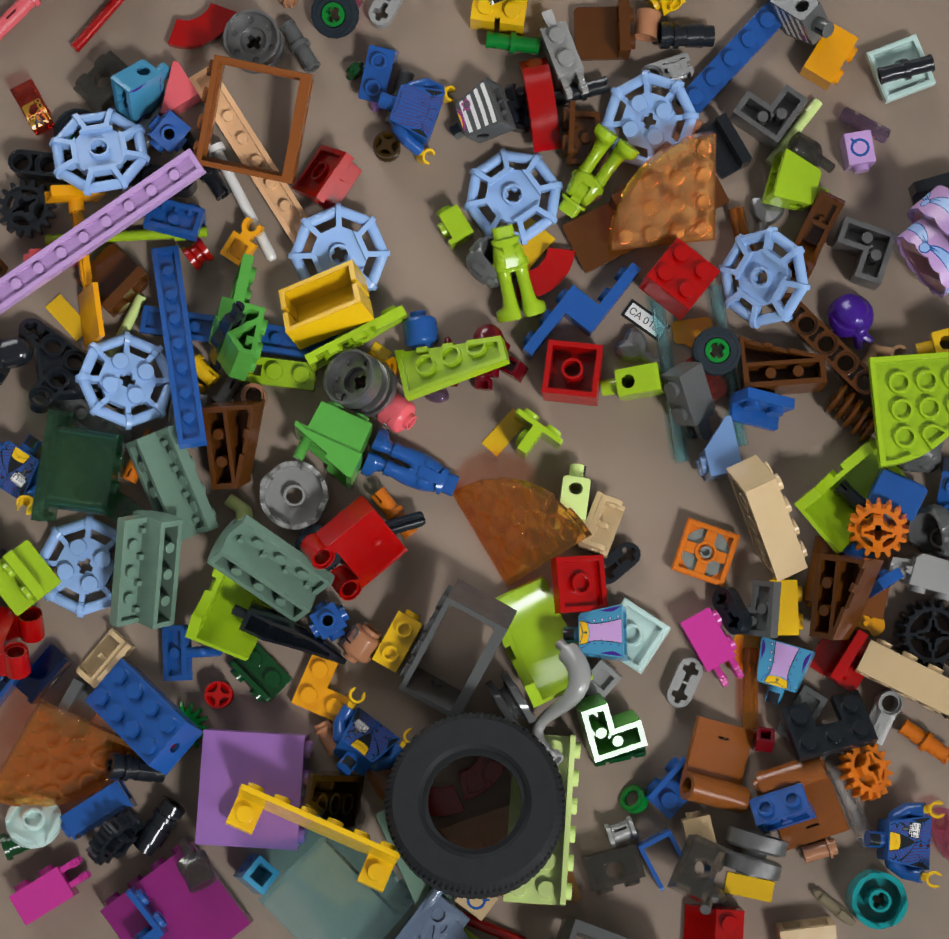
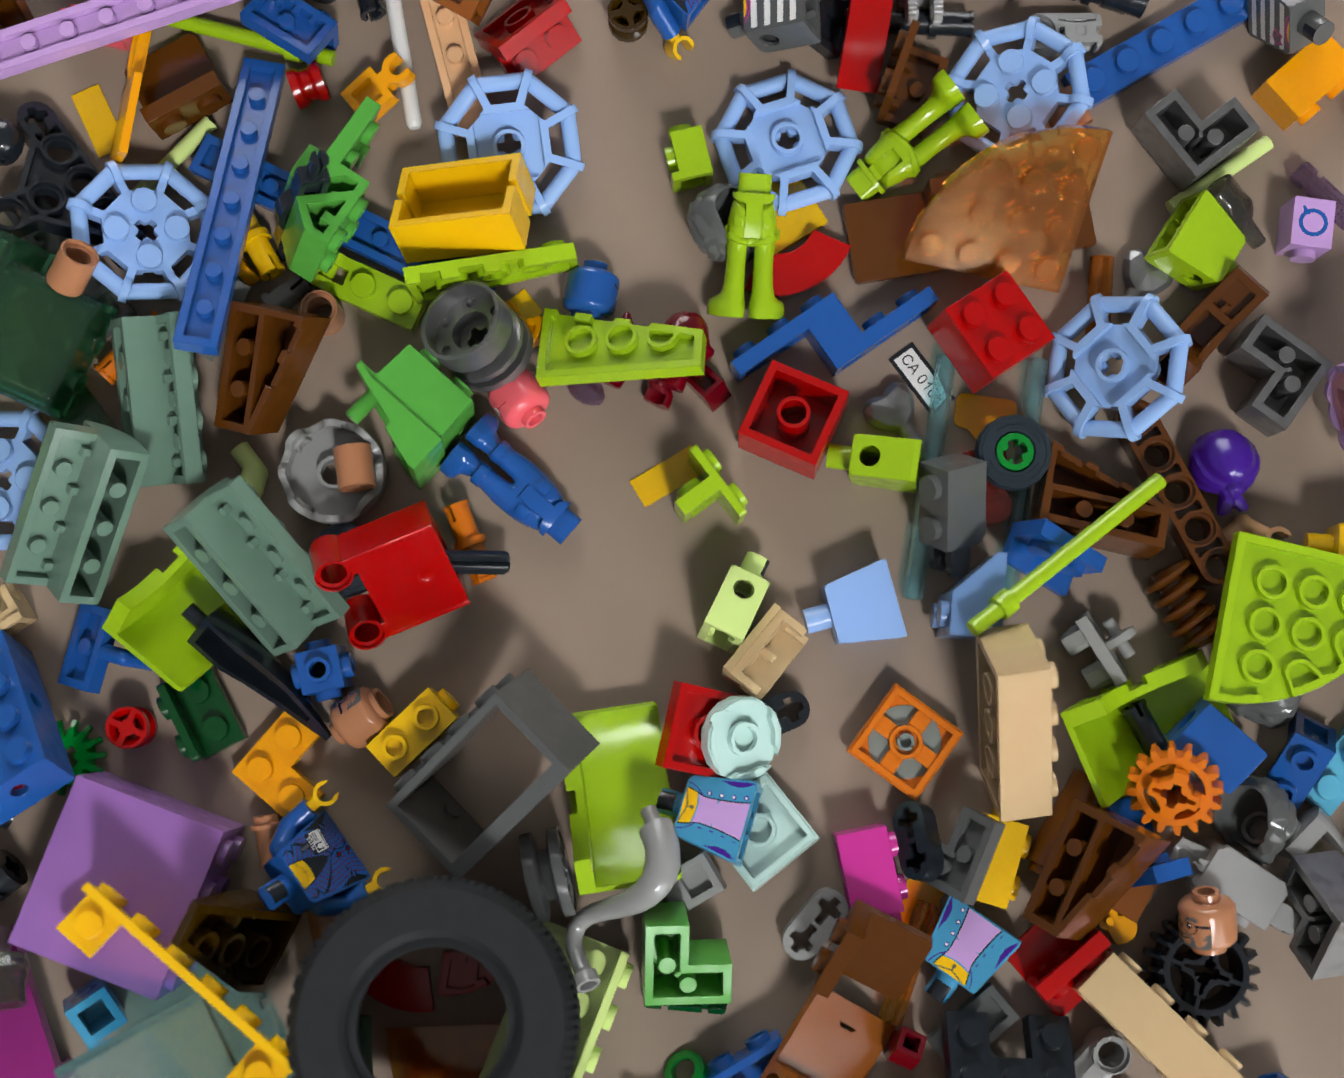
camera: 15 degrees right, 0 degrees up
(95, 418) = (72, 267): none -> nougat beam
(308, 488) = (354, 467): none -> nougat beam
(519, 524) = (645, 615): clear orange plate -> none
(602, 580) = (740, 737): none -> light aqua tile
(650, 477) = (858, 607): none -> light blue torso
(723, 686) = (871, 951): none -> reddish brown bracket
(730, 149) = (1123, 170): black panel -> none
(739, 445) = (1007, 601): none -> lime bar
(817, 465) = (1108, 666): none -> light grey hips
(921, 602) = (1207, 921): none -> nougat head

